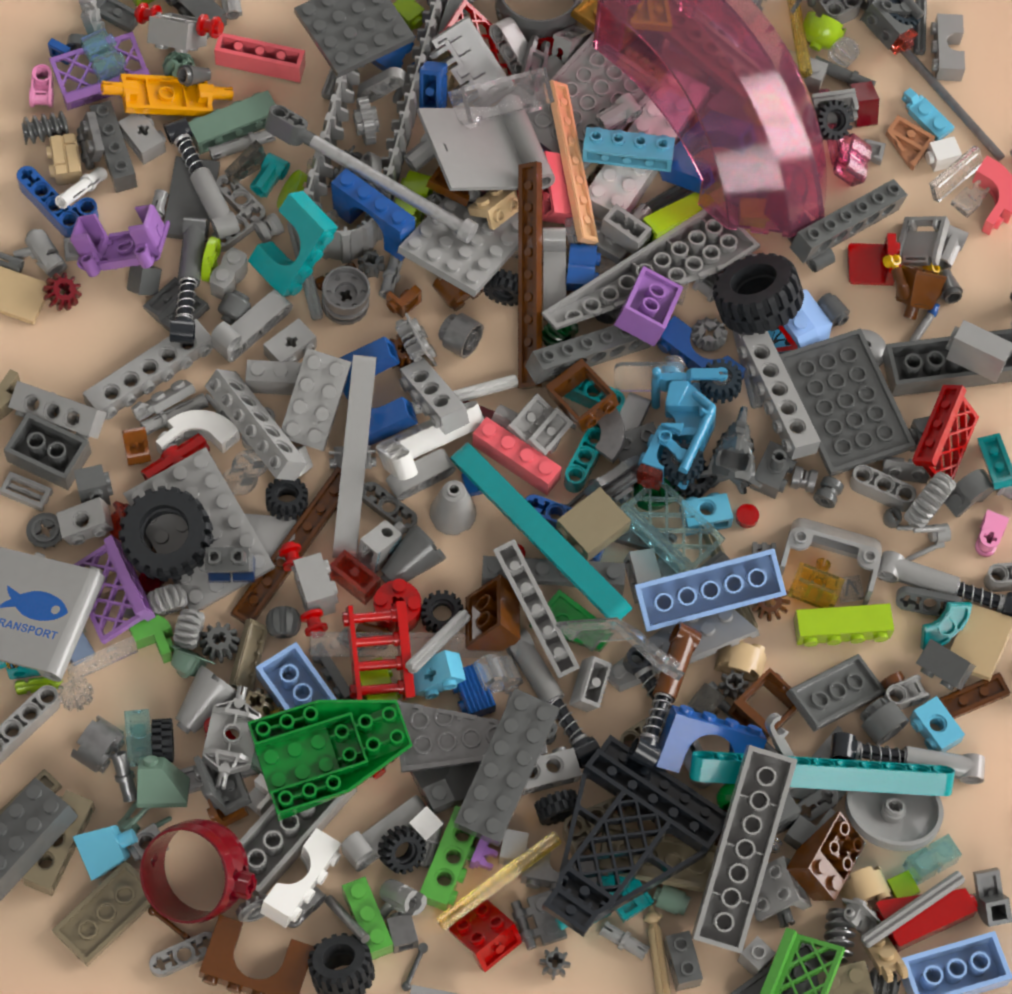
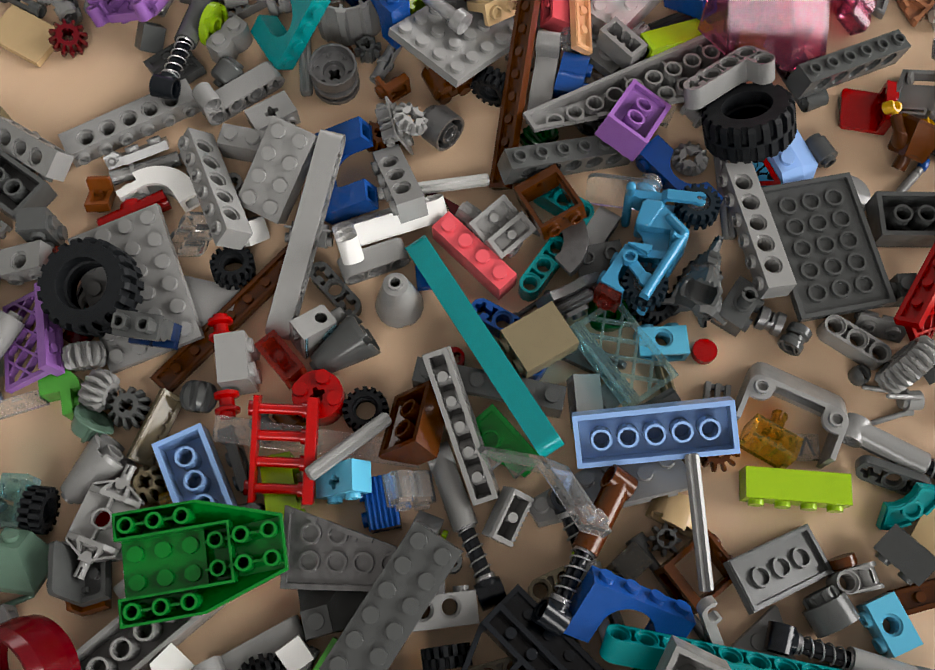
camera: 15 degrees right, 5 degrees up
(431, 337) = (405, 122): none -> light grey gear
(731, 249) = (727, 73): none -> light grey beam
(758, 657) = (699, 522): none -> light grey axle

